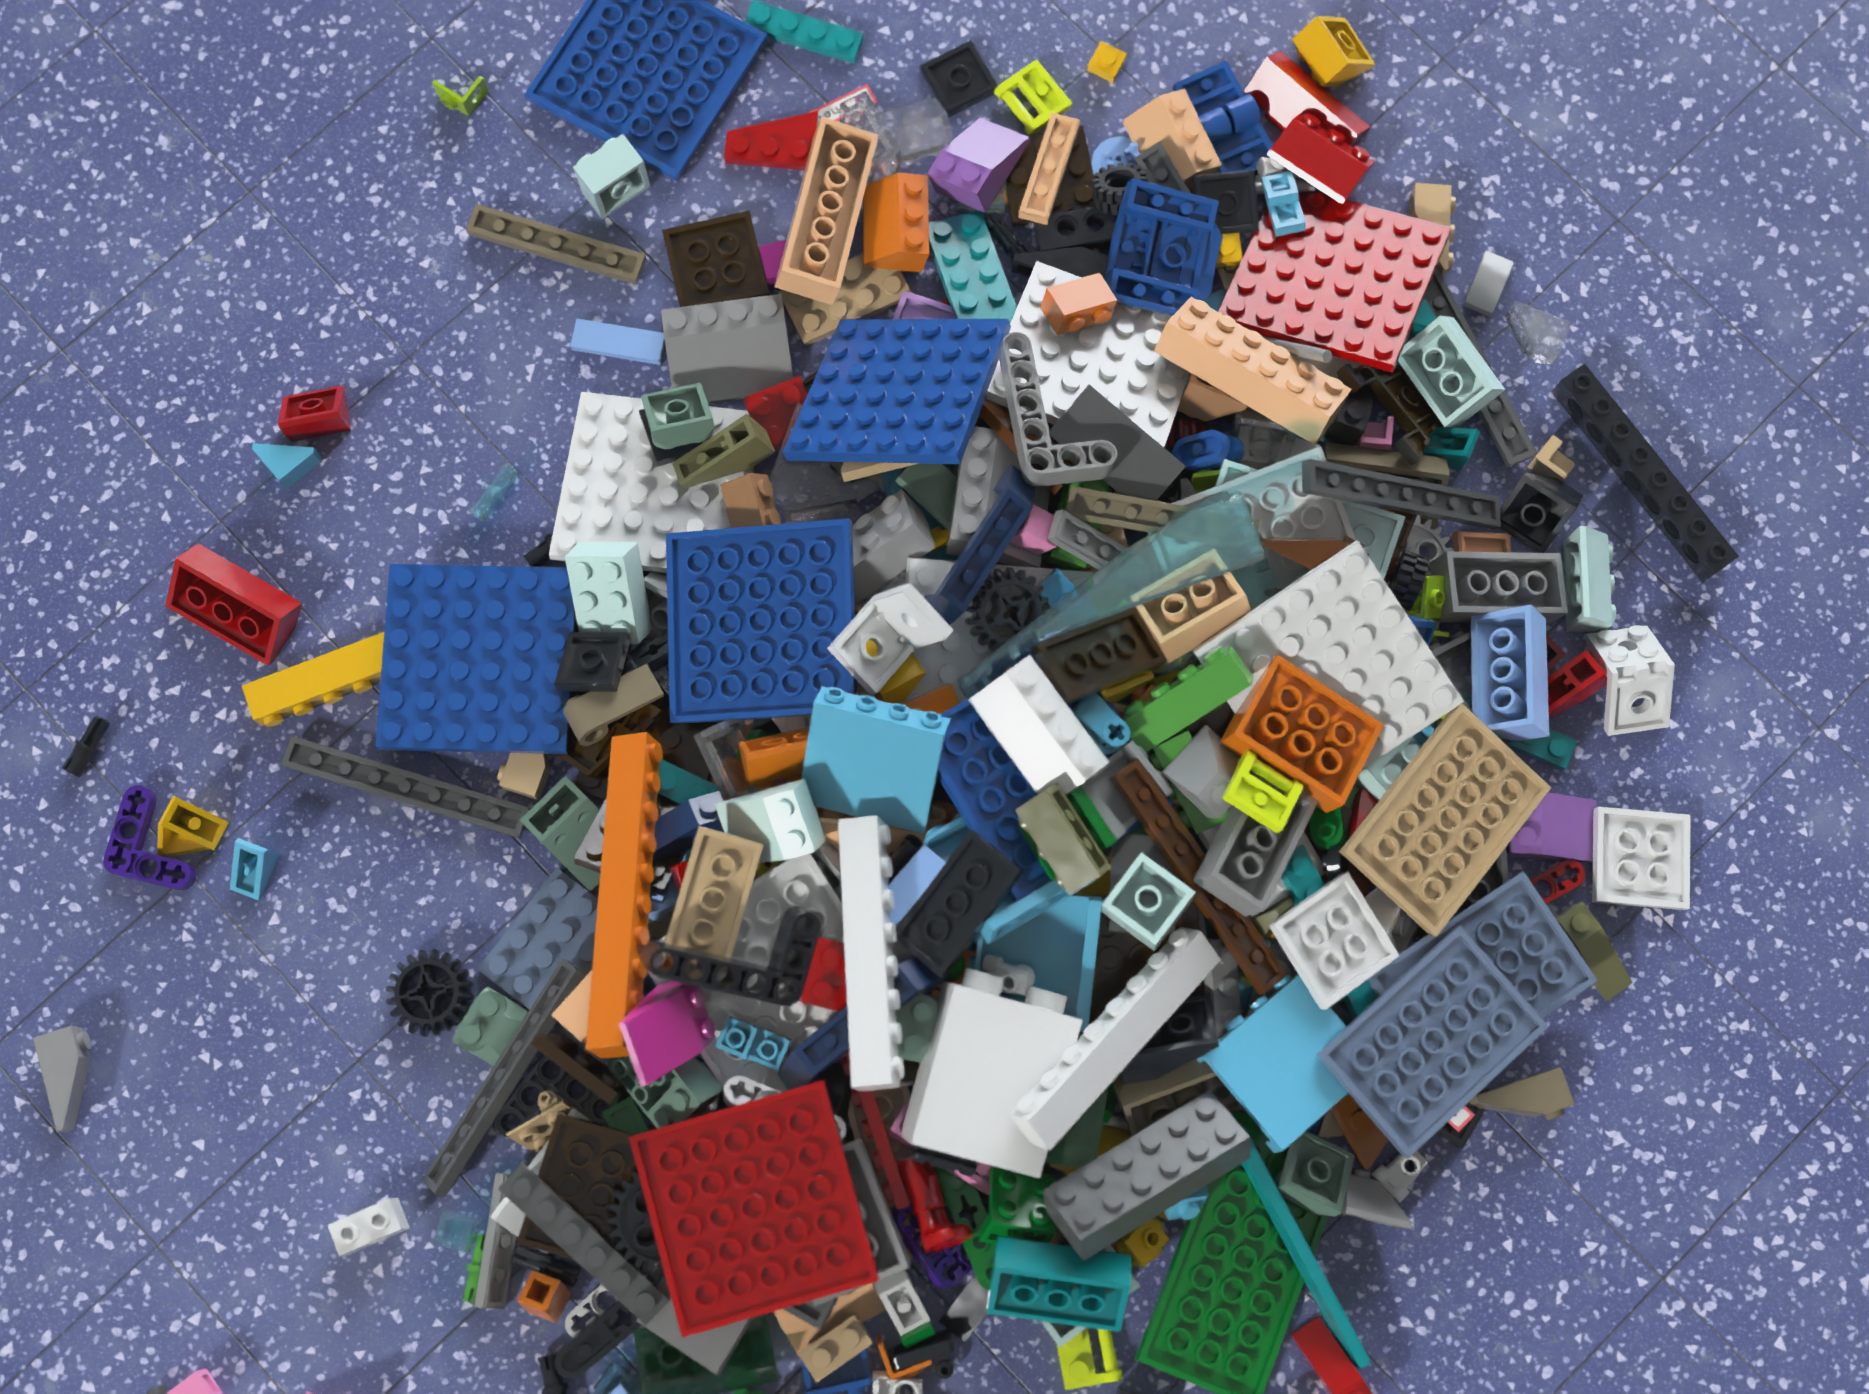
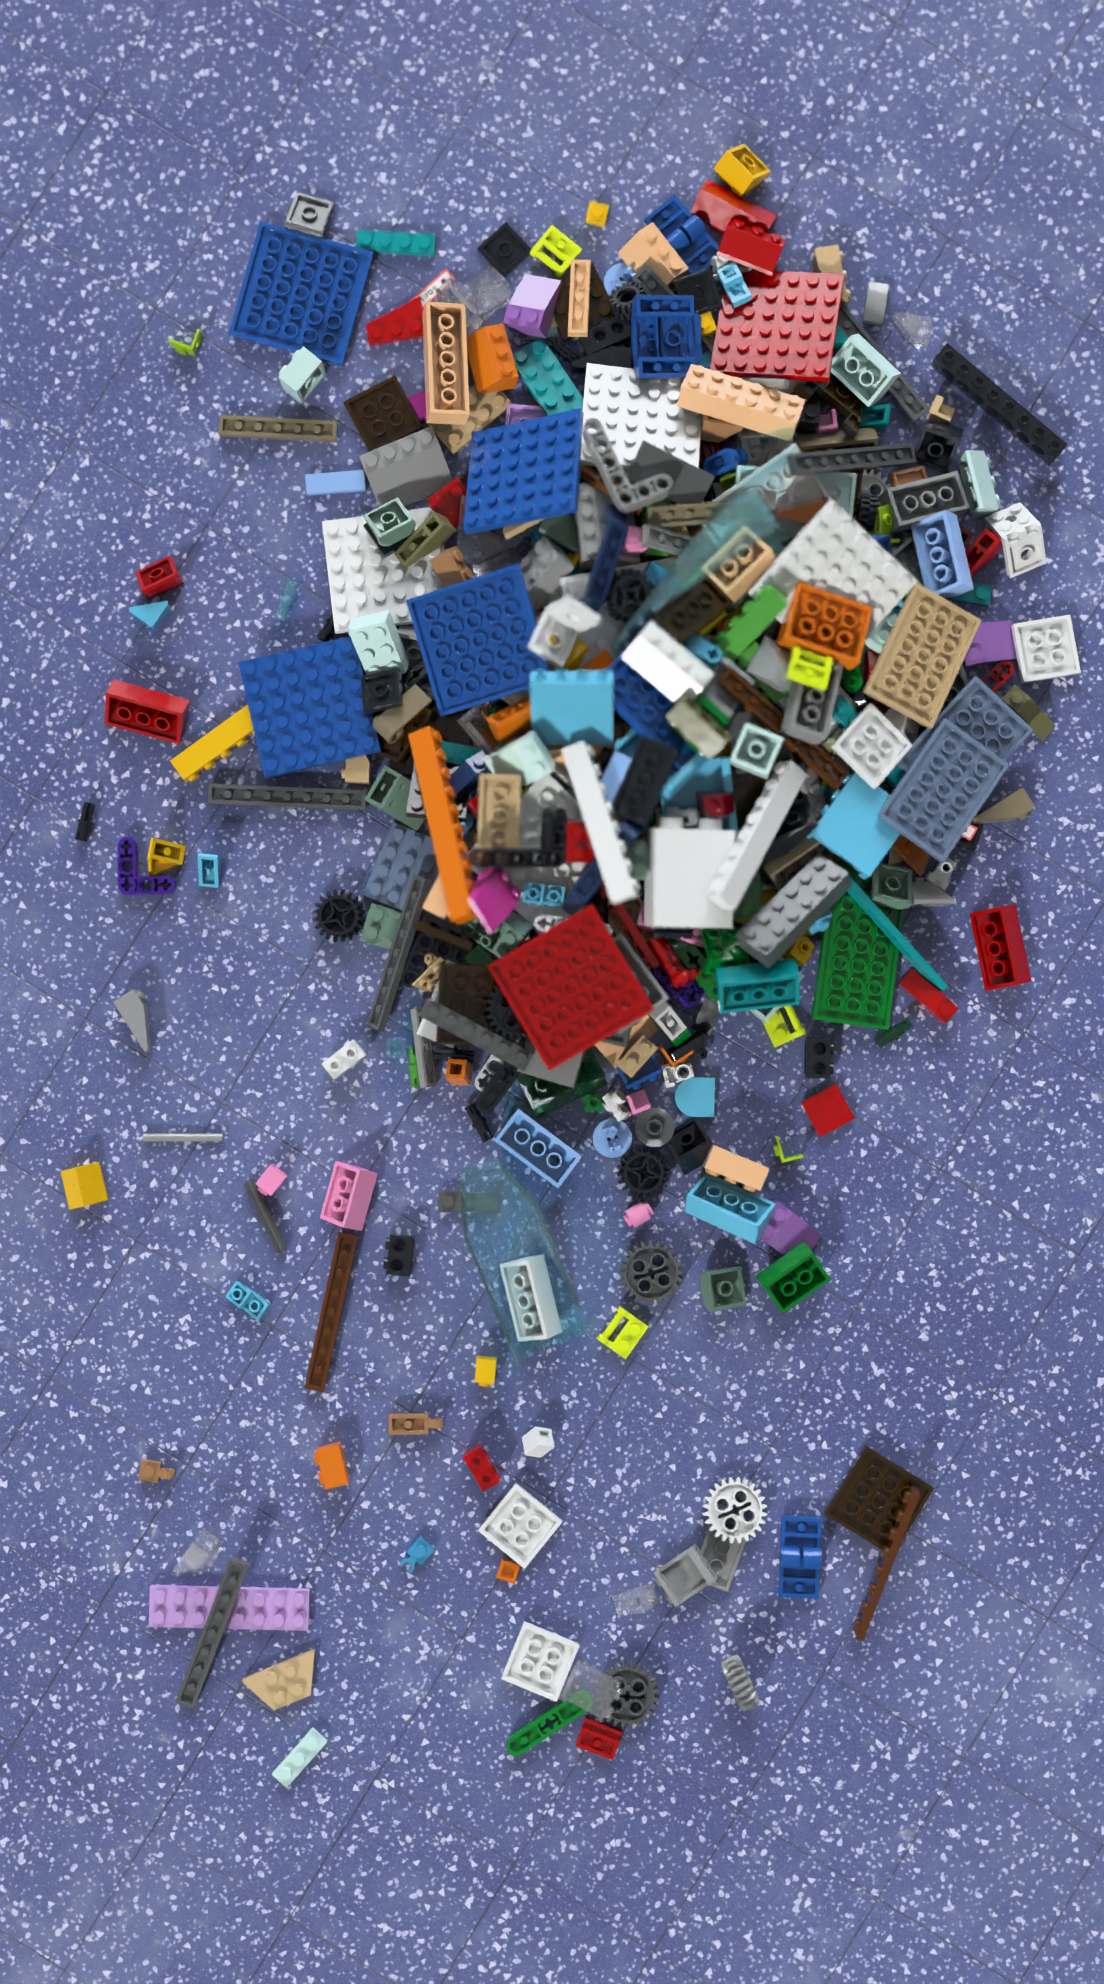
camera: 10 degrees left, 10 degrees up
(77, 1286) = (182, 1137): none -> light grey bar
(1063, 968) = (715, 803): none -> dark red slope
(1078, 304) = (622, 386): brick -> none
(1470, 1320) = (1000, 947): none -> red slope

